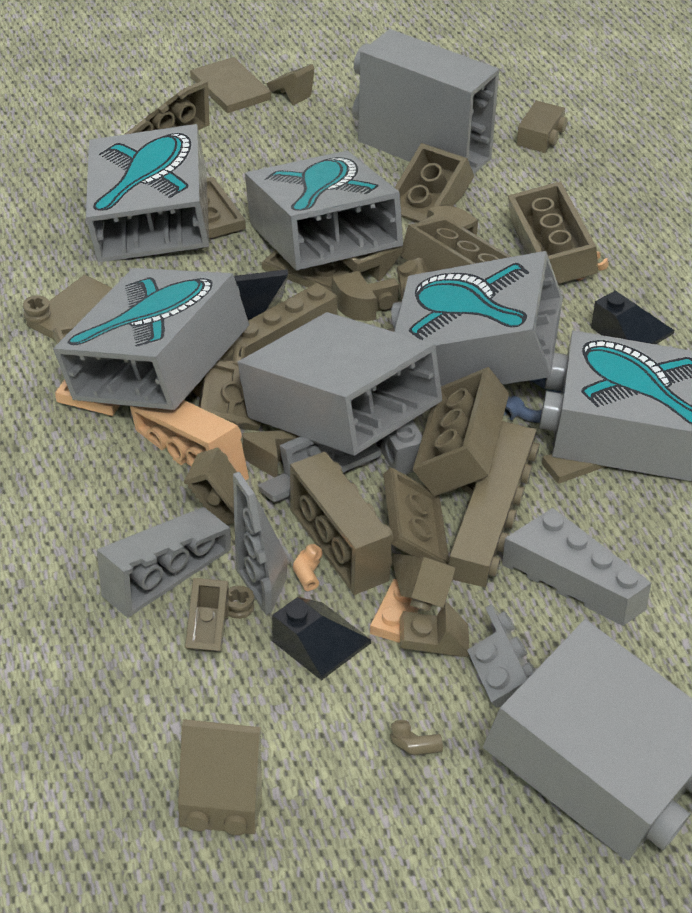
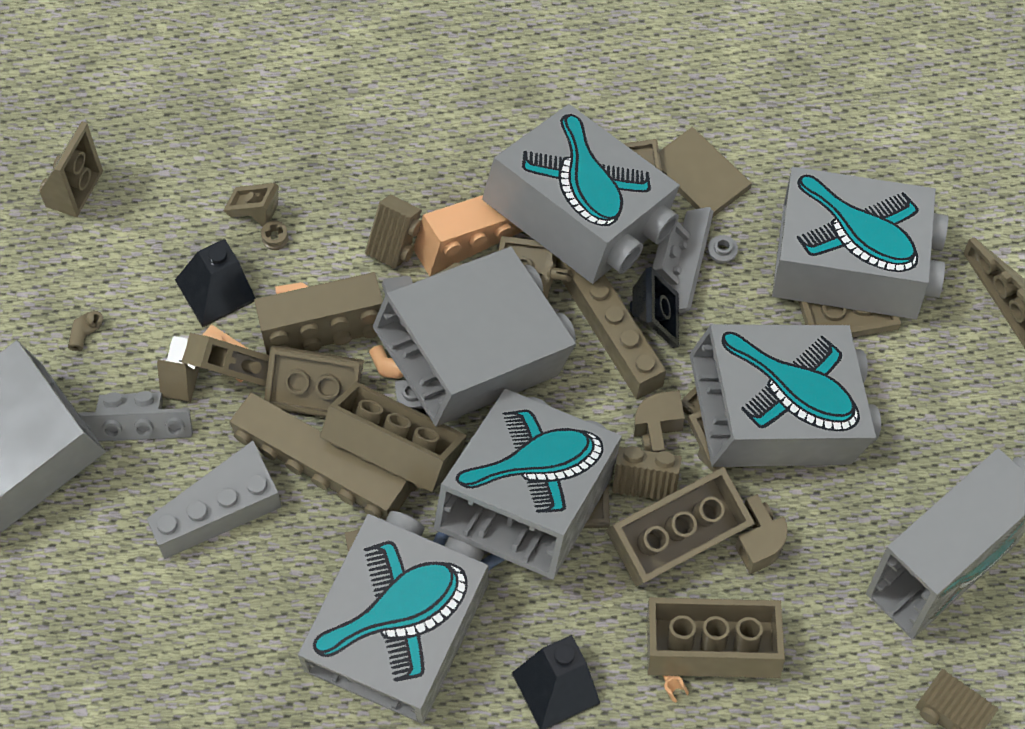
camera: 105 degrees right, 20 degrees up
(36, 309) = (693, 124): dark tan bush -> none
(159, 559) = (329, 178): light grey wedge -> none
(258, 553) = (292, 235): light grey wedge -> none
(369, 479) = (385, 366): none -> light nougat arm
(431, 181) = (841, 539): dark tan slope -> none

